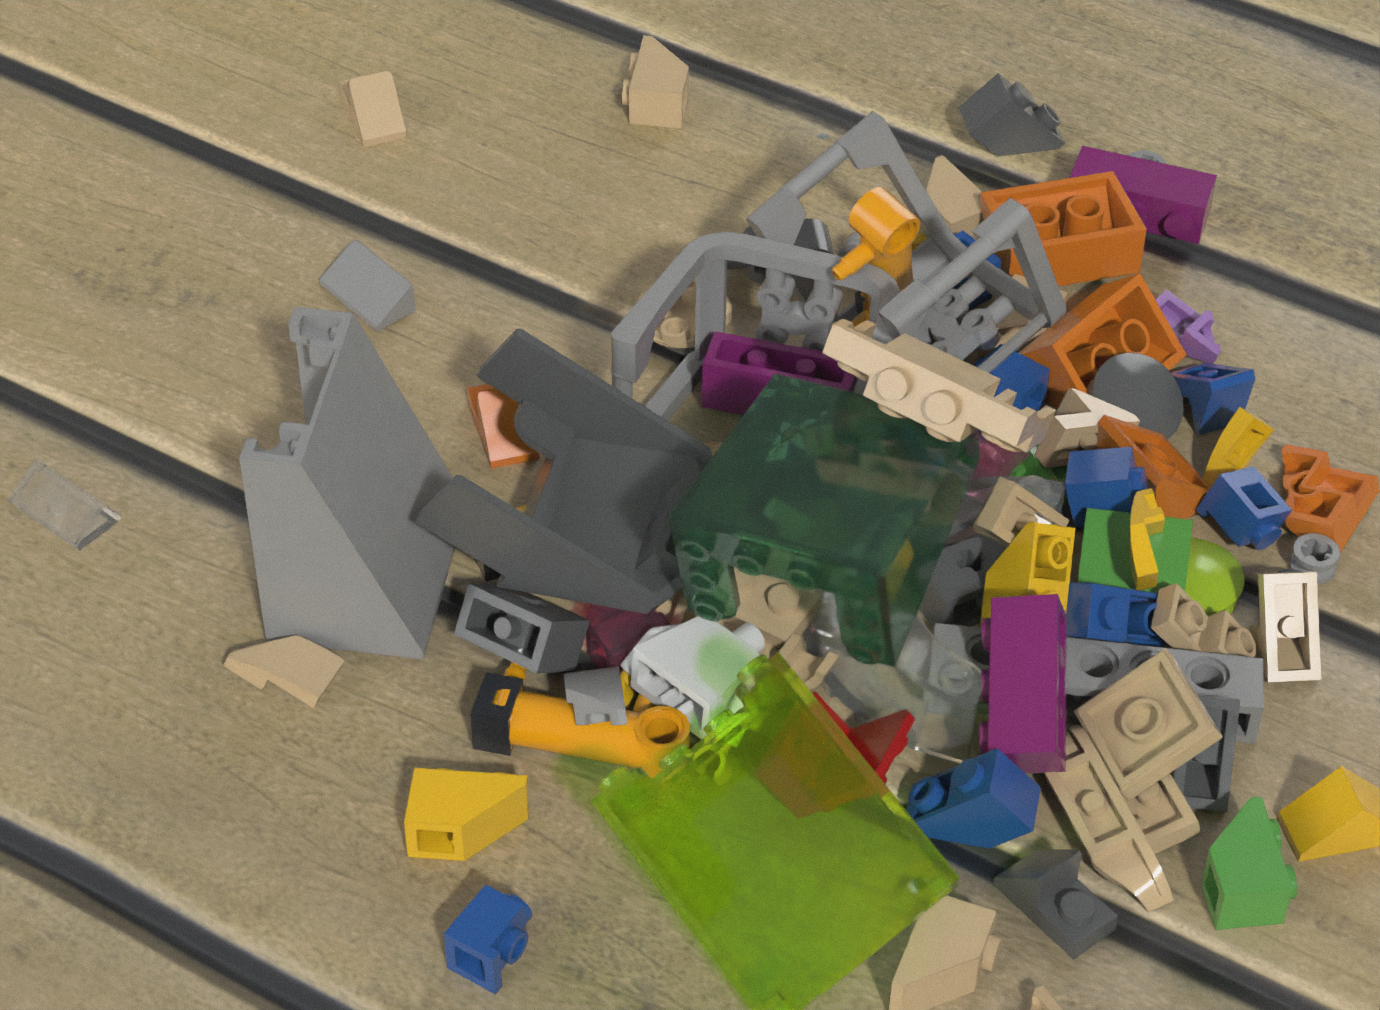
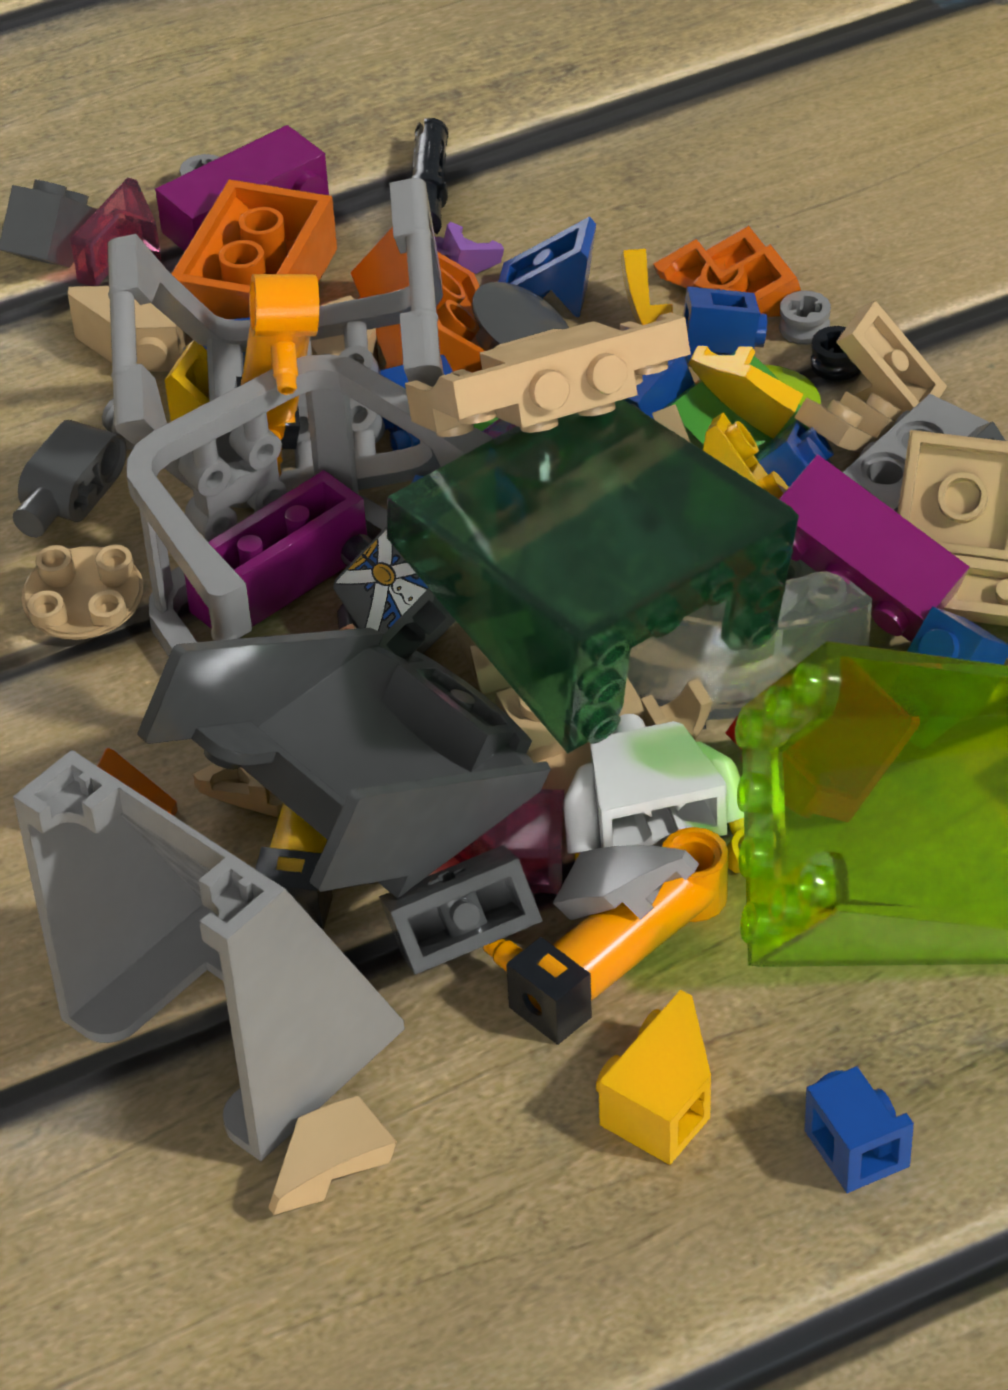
camera: 55 degrees left, 0 degrees up
(1034, 152) = (119, 216): none -> clear pink slope
(1243, 285) = (430, 164): none -> black pin

